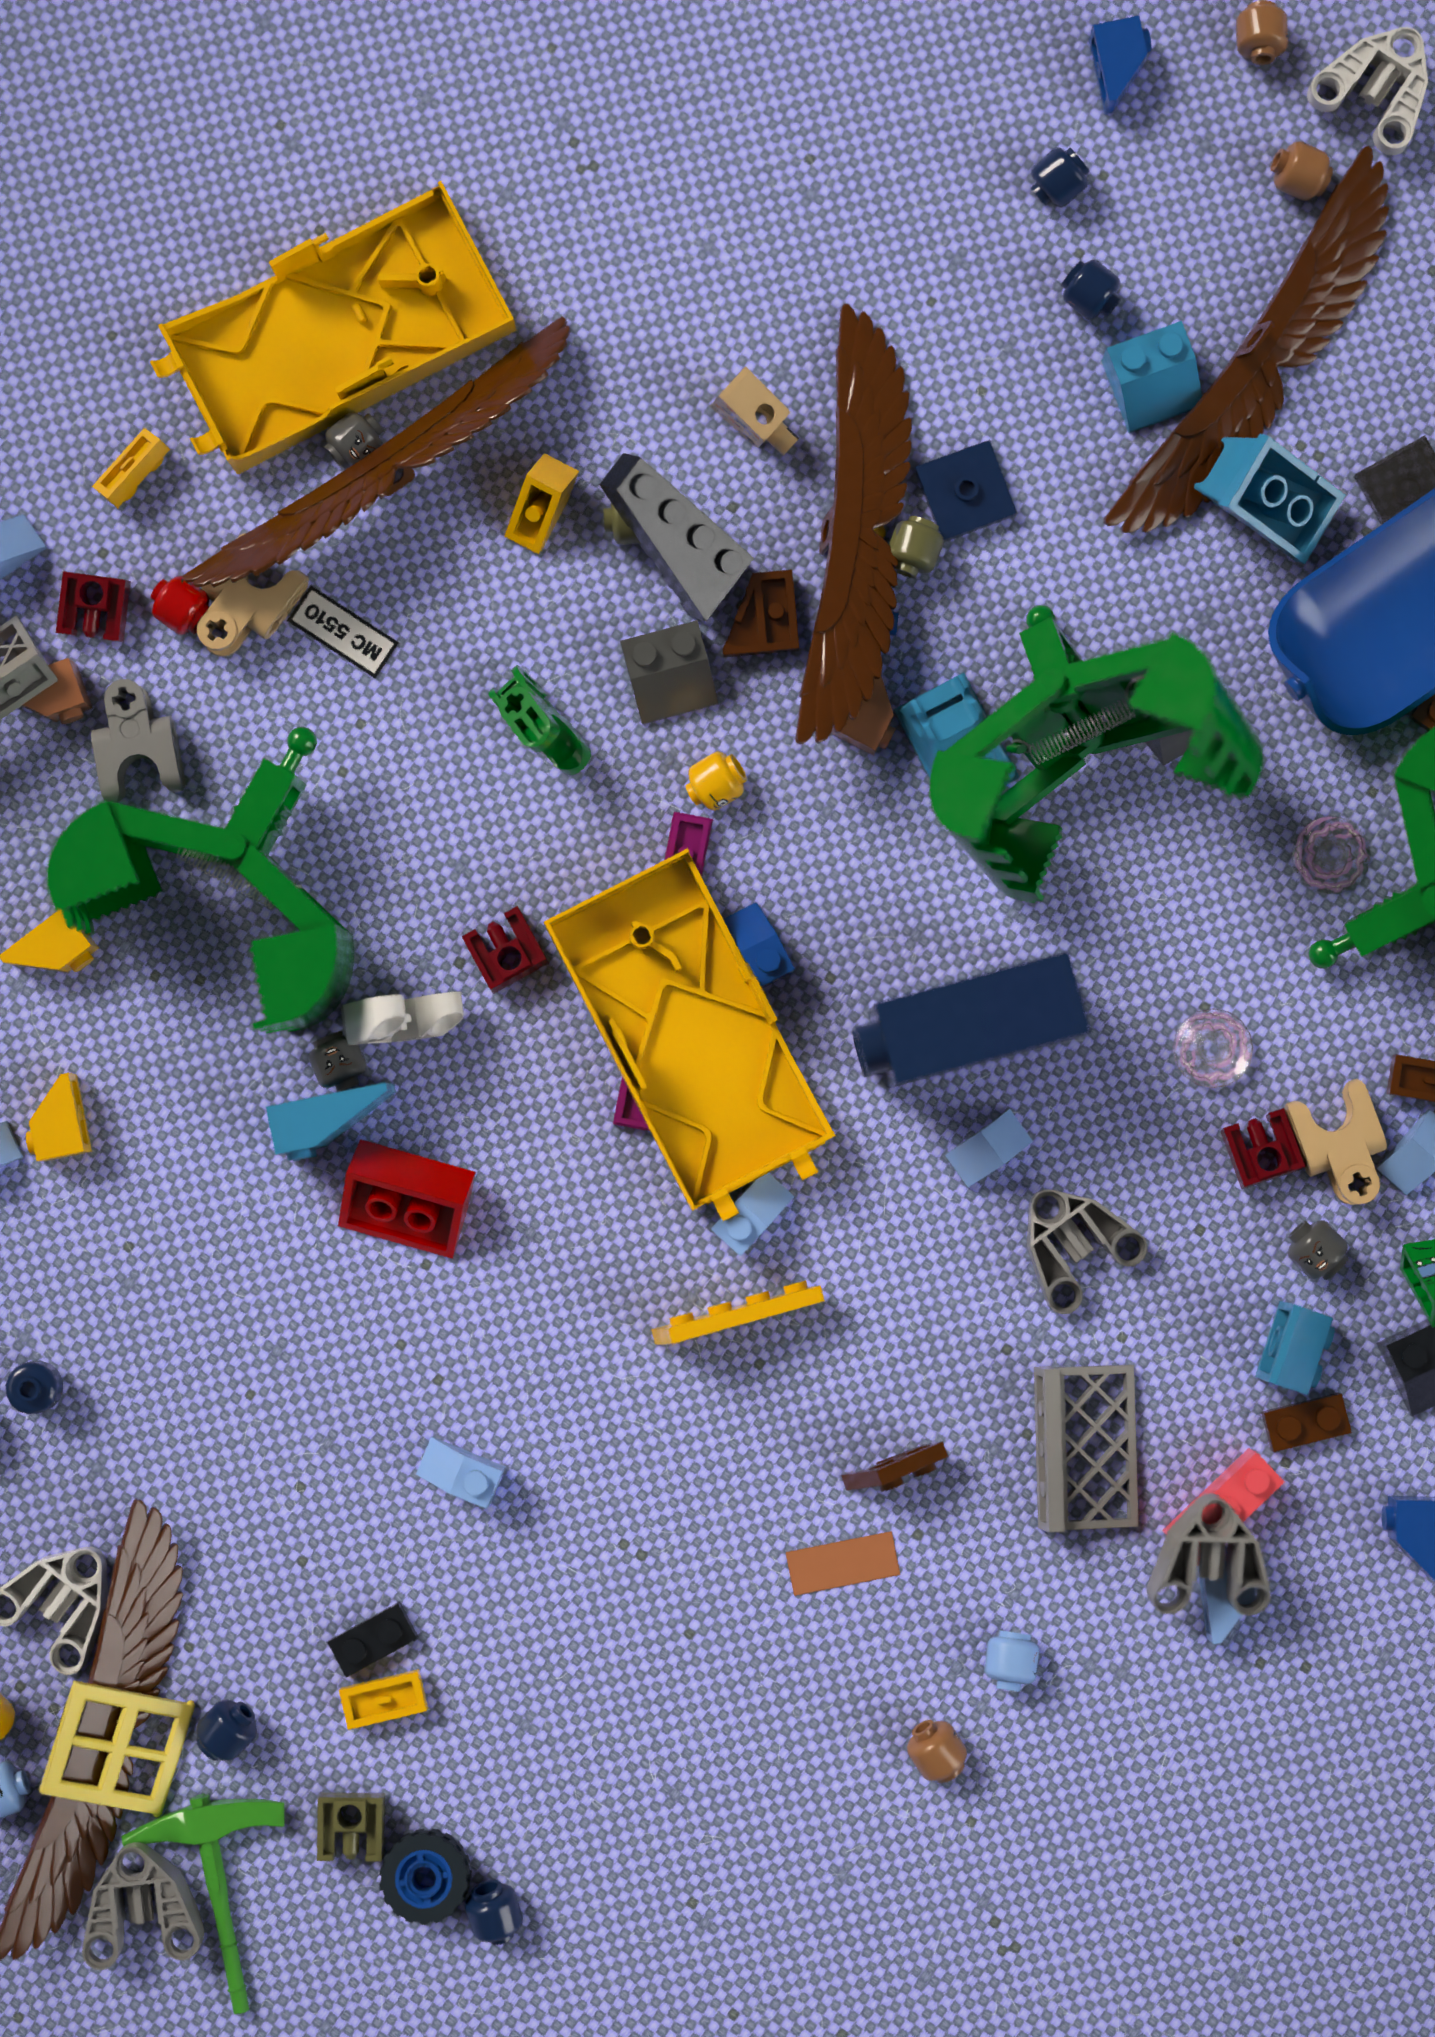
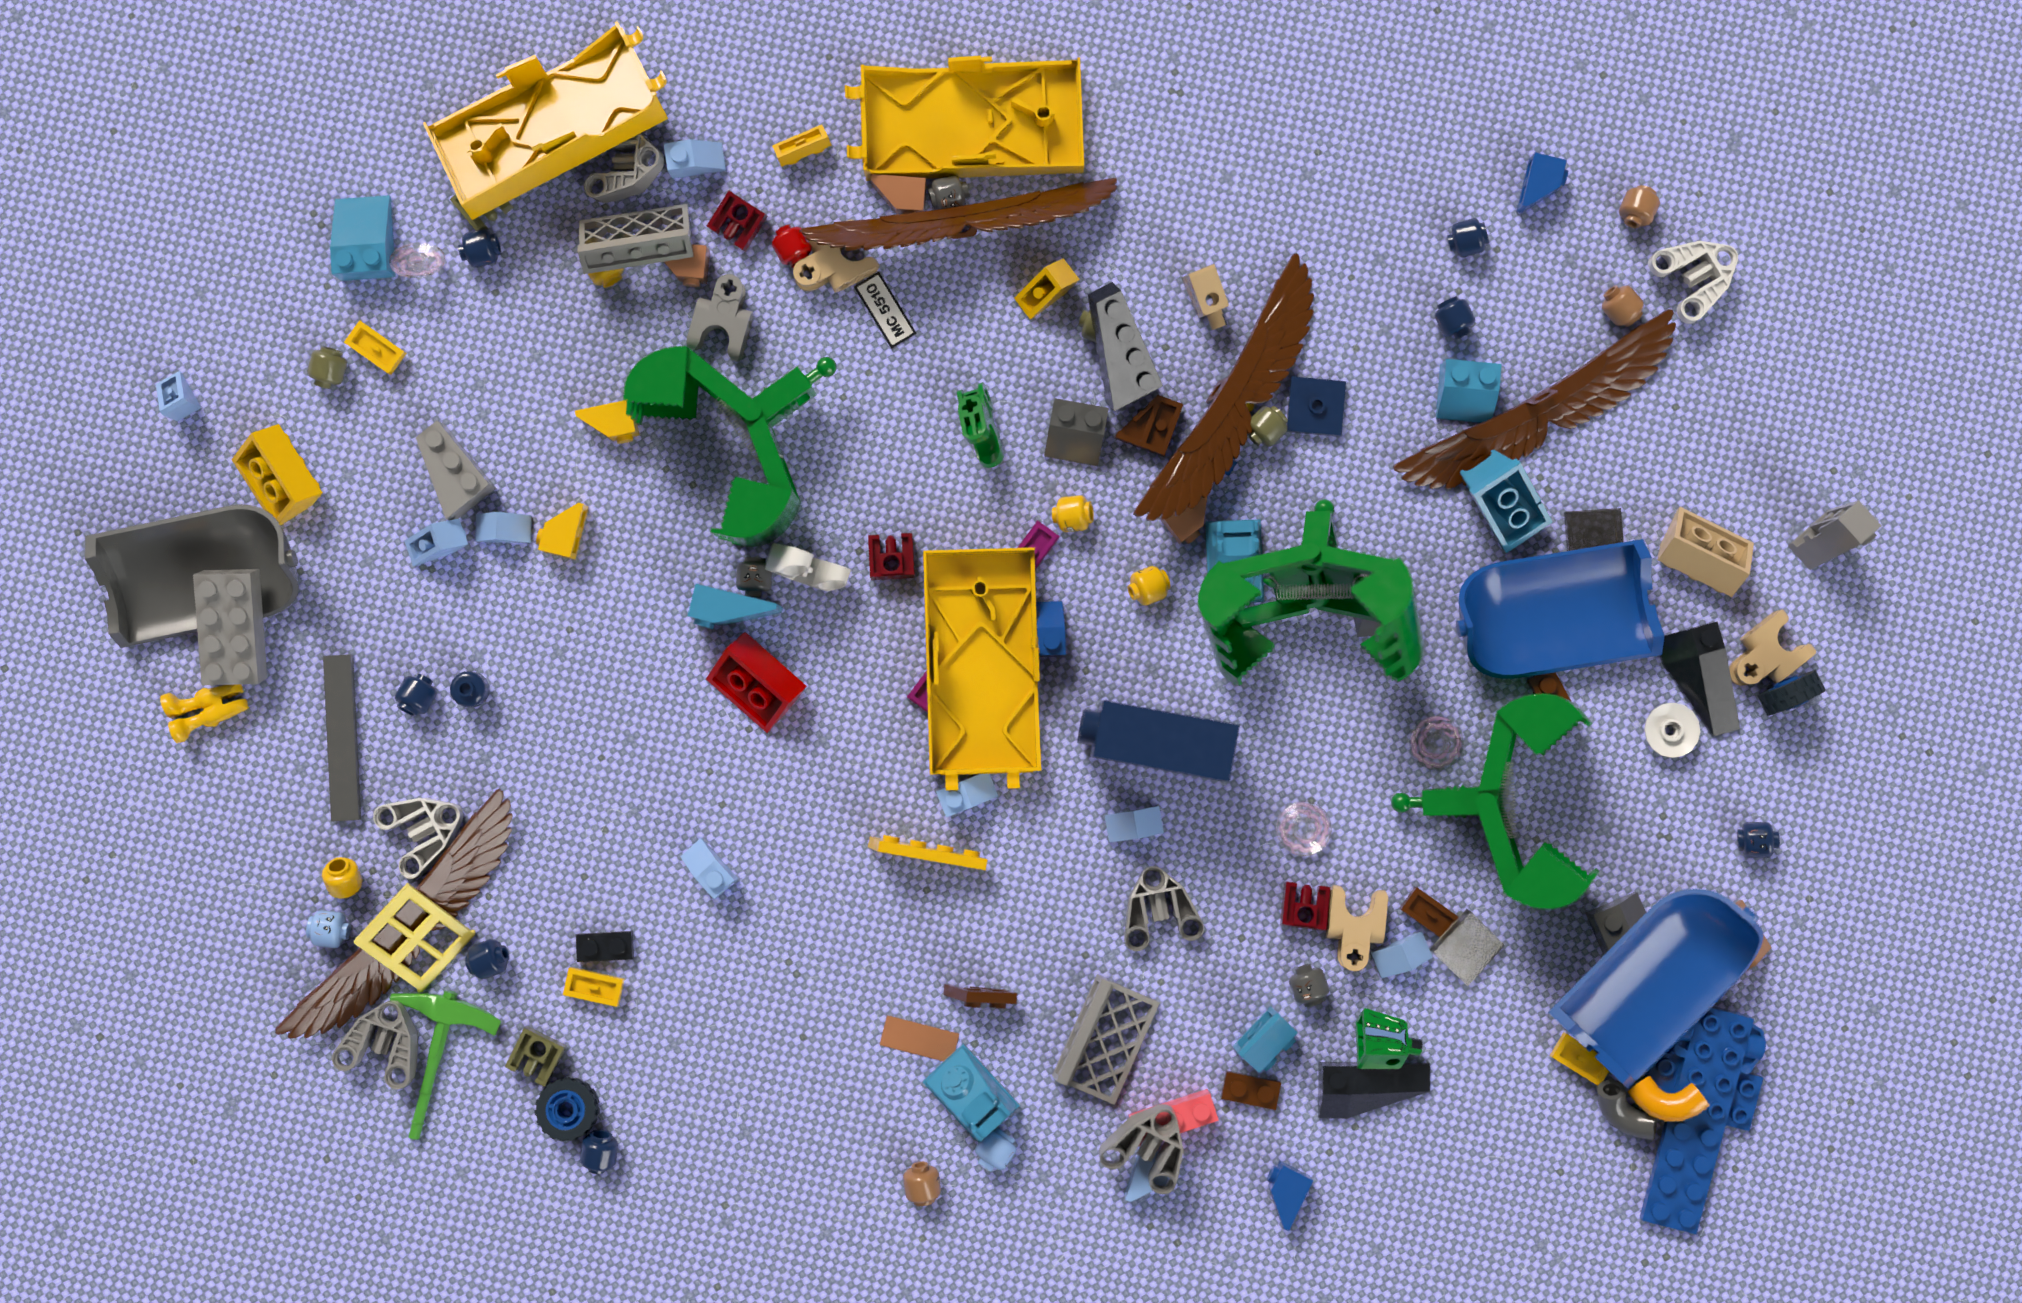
camera: 20 degrees right, 0 degrees up
(291, 468) = (901, 192): none -> nougat slope
(860, 827) = (1149, 585): none -> yellow head
(944, 1601) = (971, 1093): none -> dark azure piece

